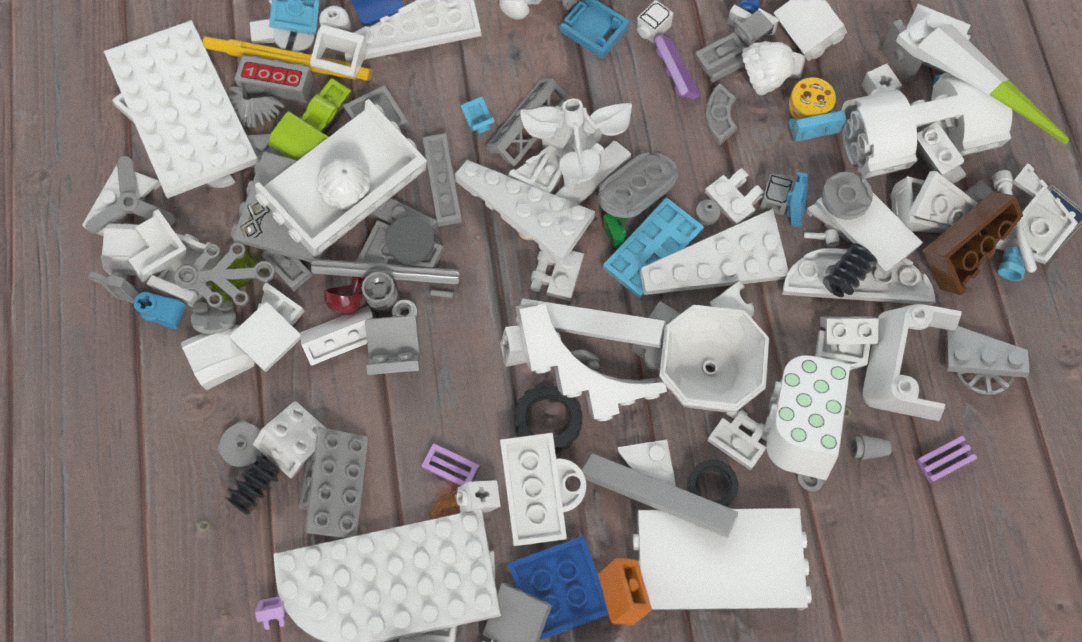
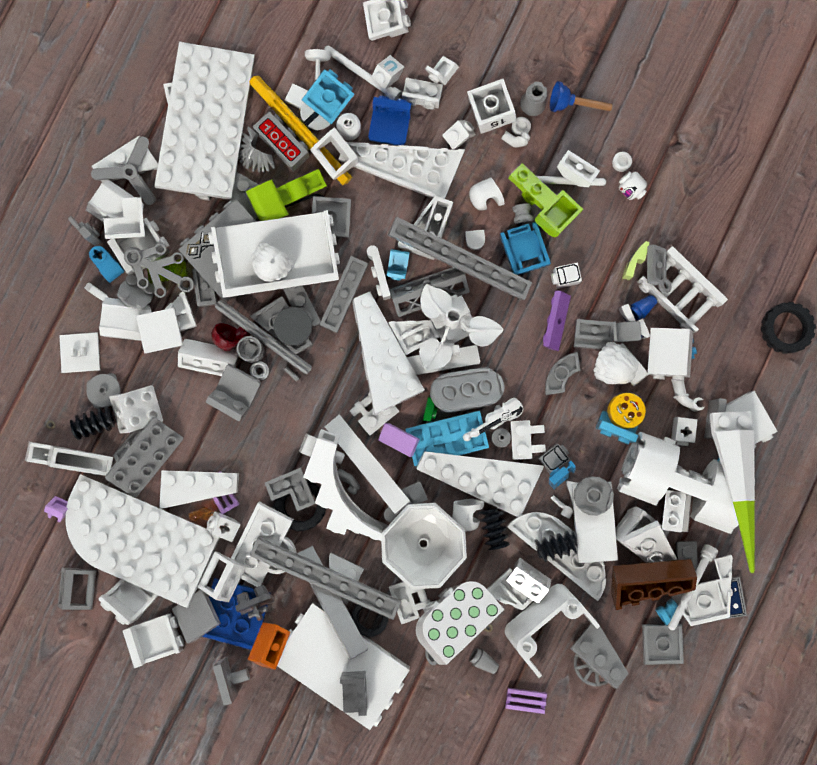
camera: 30 degrees right, 15 degrees up
(166, 346) = (95, 291): none -> white tile
(188, 424) = (79, 352): none -> white piece
(247, 543) = (68, 458): none -> white slope
(410, 482) = (192, 486): none -> white wing
(464, 135) = (377, 271): none -> white plate
(485, 65) = (432, 220): none -> white wedge
(524, 395) = (292, 484): none -> light grey plate
(526, 549) = (227, 581): none -> white tile
(536, 64) = (459, 258): none -> light grey plate
(538, 48) = (475, 239): none -> white tile
(576, 556) = (254, 606): none -> flat silver hips
(604, 279) = (399, 439): none -> lavender tile
(632, 470) = (325, 578): none -> light grey tile
(696, 181) = (510, 410): none -> white piece
(759, 571) = (354, 692): none -> flat silver panel
(771, 301) = (494, 529): none -> black piece
(853, 57) = (682, 397): none -> white piece
(1034, 302) = (662, 644): none -> light grey tile

